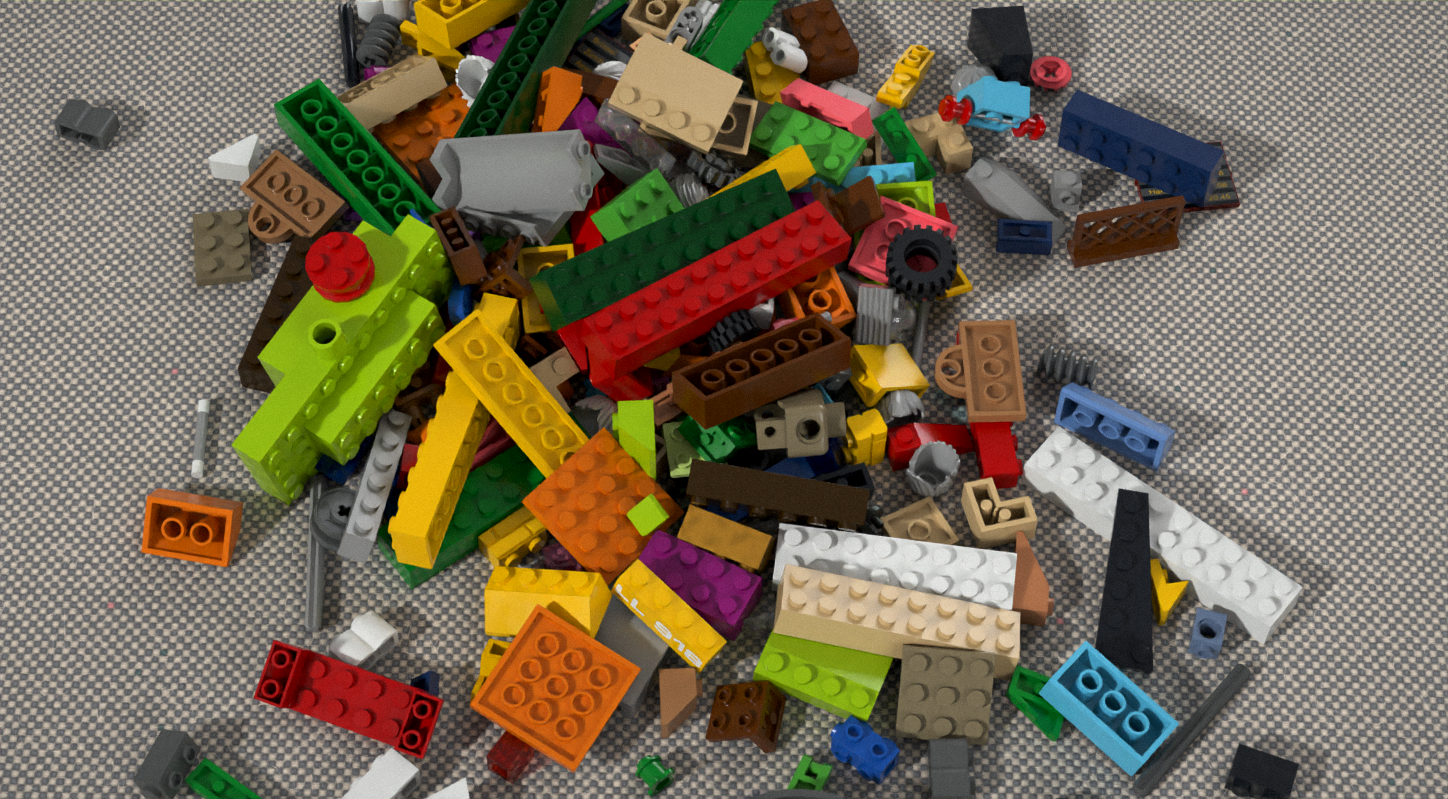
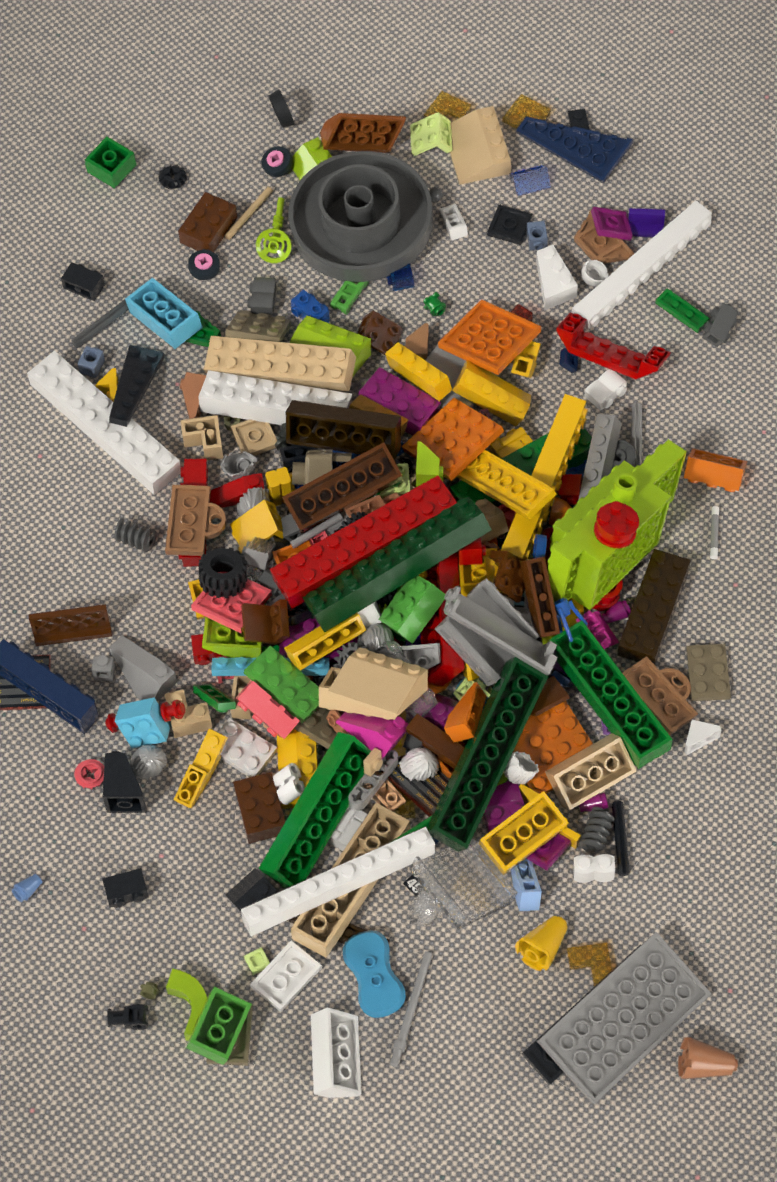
camera: 170 degrees left, 5 degrees up
(647, 515) = (425, 428): lime slope -> none
(1024, 236) = (141, 635): dark blue slope -> none
(1113, 426) = (113, 490): medium blue slope -> none

